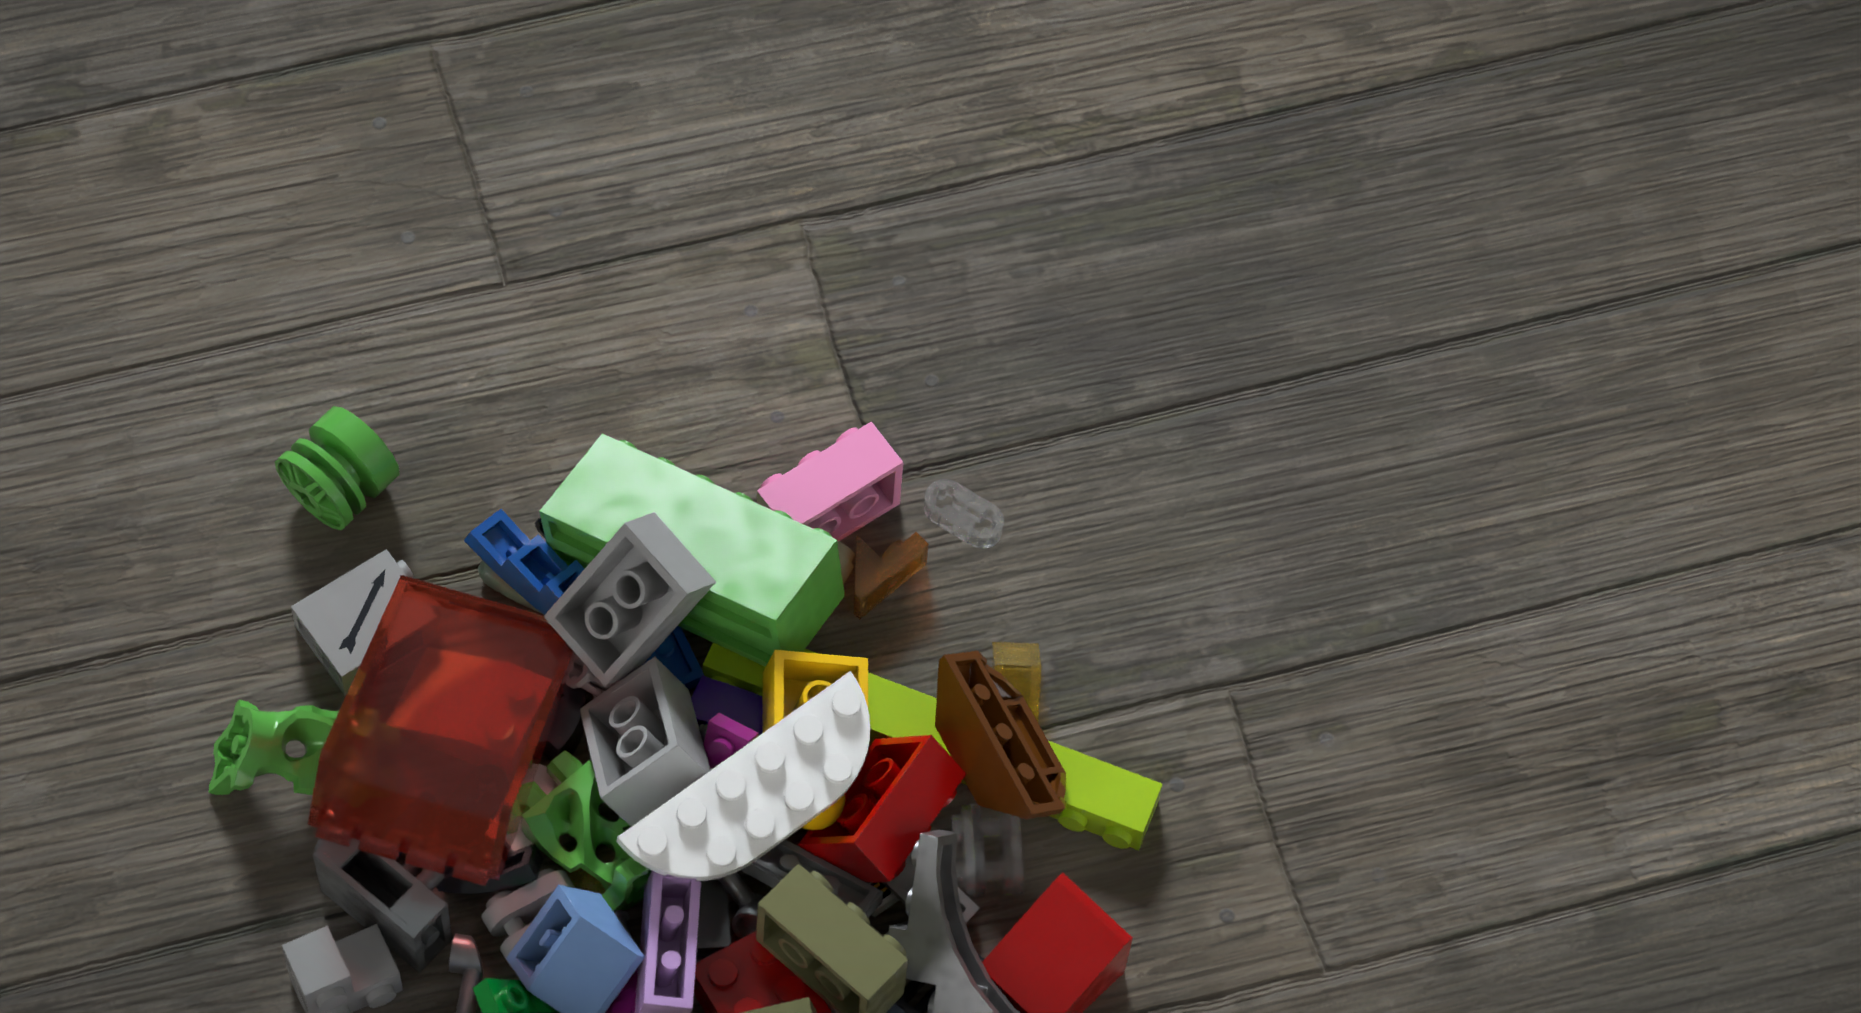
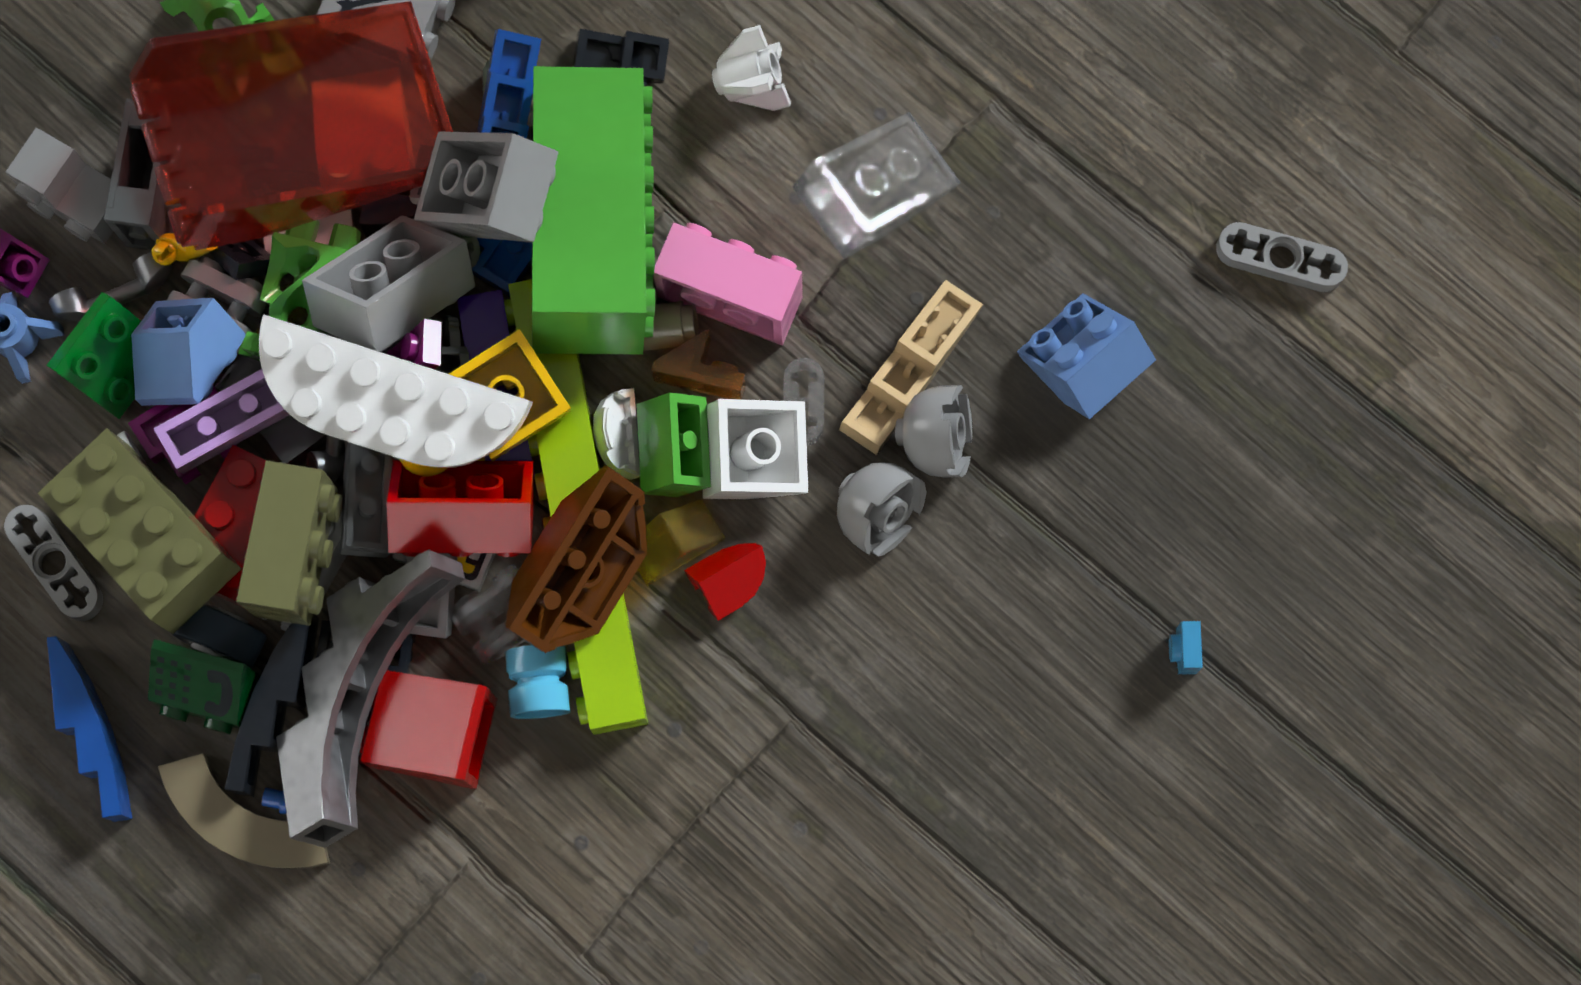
camera: 65 degrees right, 15 degrees up
(470, 909) = (168, 250): none -> yellow arm
(550, 467) = (625, 51): none -> black slope
(650, 374) = (750, 70): none -> white brick
(816, 346) = (874, 184): none -> clear slope
(894, 666) = (617, 433): none -> white tile
(934, 621) = (673, 445): none -> bright green brick
(982, 569) = (756, 449): none -> white slope
(992, 416) = (910, 366): none -> tan slope
(1065, 851) = (538, 684): none -> medium azure wheel
(1067, 422) = (936, 430): none -> light grey cylinder
(1075, 281) = (1087, 354): none -> medium blue slope
(1076, 658) = (729, 577): none -> red brick
(1083, 118) = (1252, 237): none -> light grey beam
(1095, 505) = (877, 505): none -> light grey cylinder
(1370, 358) = (1186, 647): none -> dark azure plate

